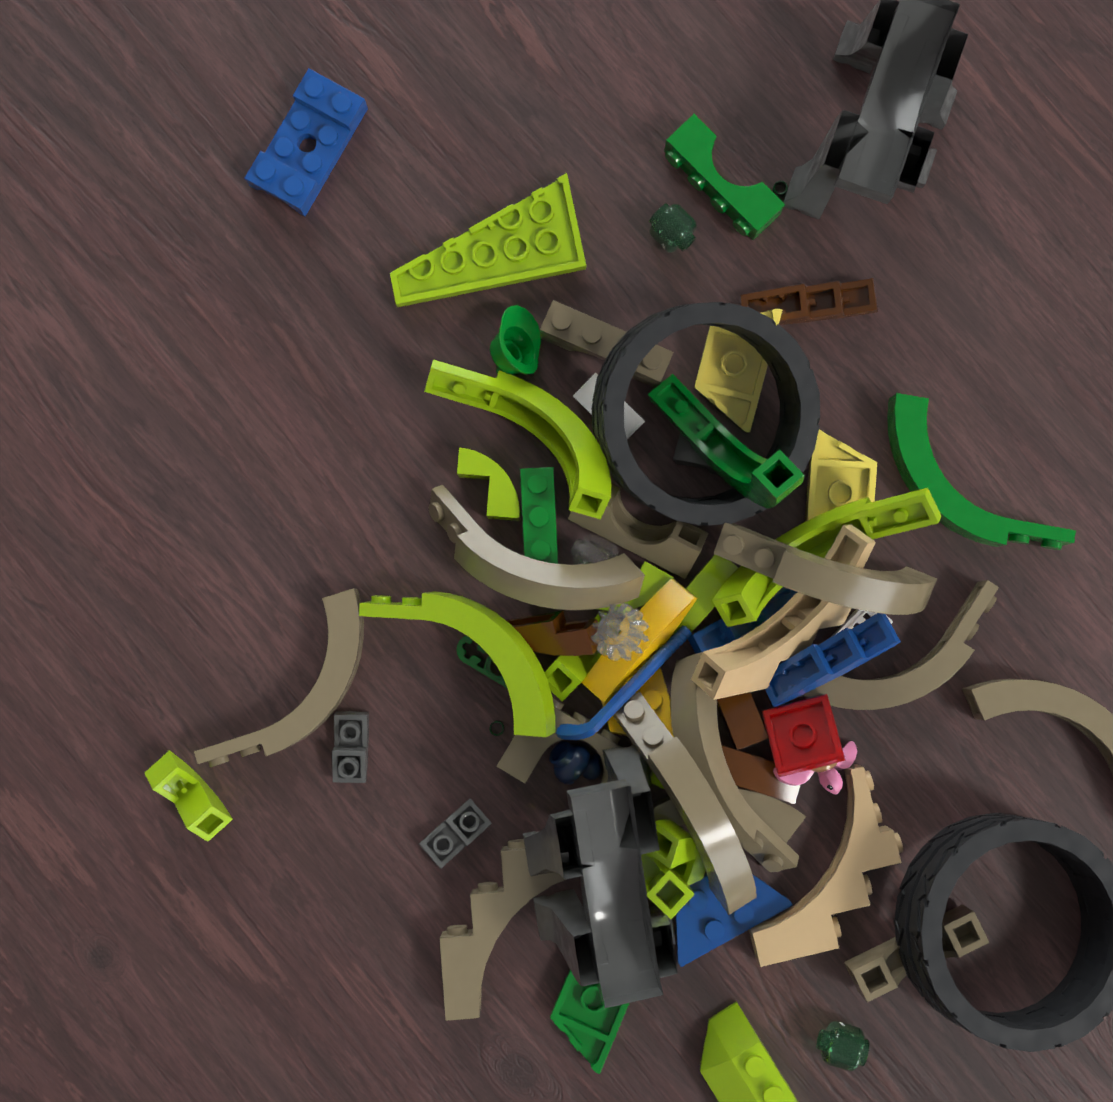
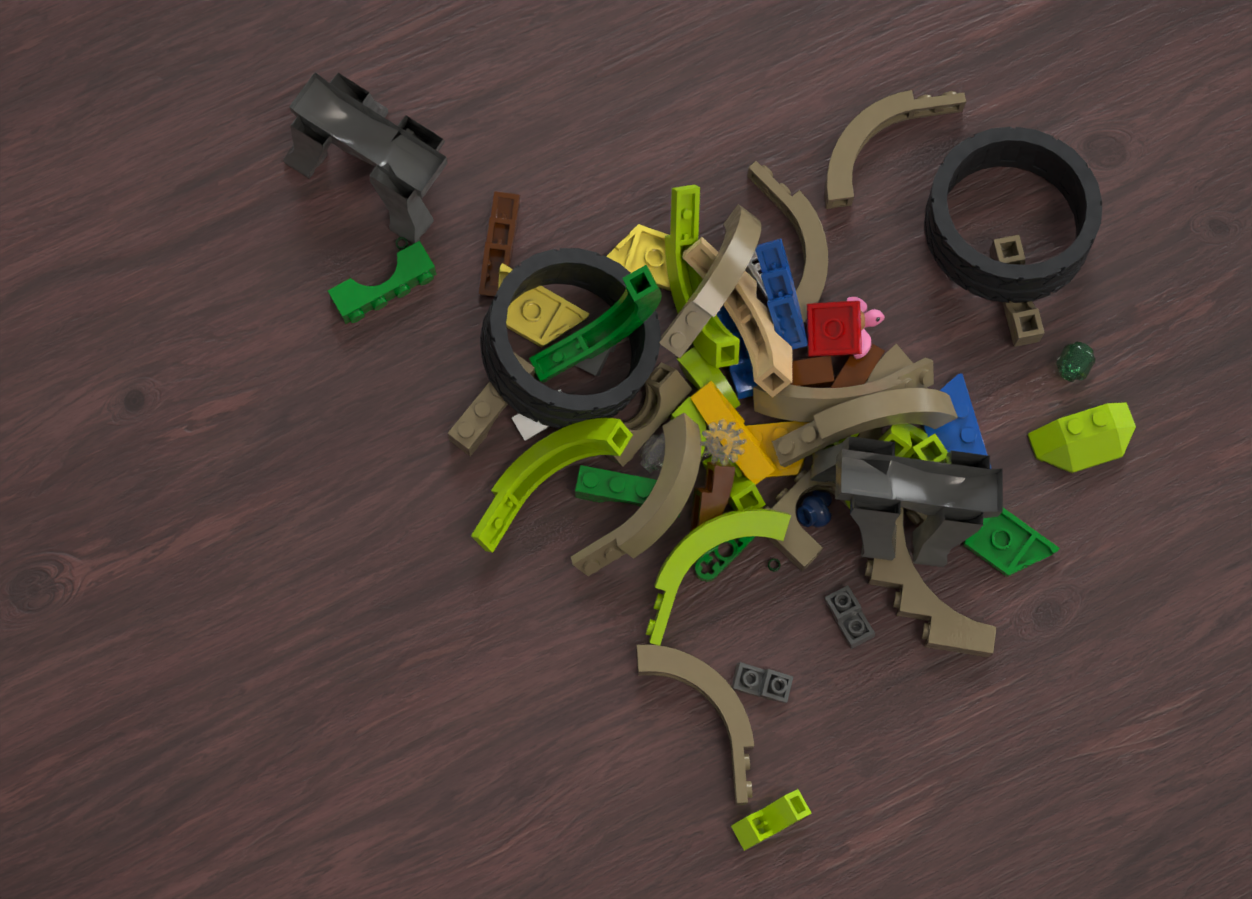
camera: 80 degrees left, 10 degrees down
(320, 113) = (237, 585): blue piece -> none
(502, 496) = (589, 513): lime brick -> none
(508, 248) = (391, 456): lime wing -> none
(517, 343) = (473, 473): green piece -> none
(585, 730) = (790, 478): blue piece -> none
(673, 227) = (412, 330): clear green head -> none
(864, 846) = (929, 310): tan arch -> none
(920, 470) = (656, 194): green arch -> none

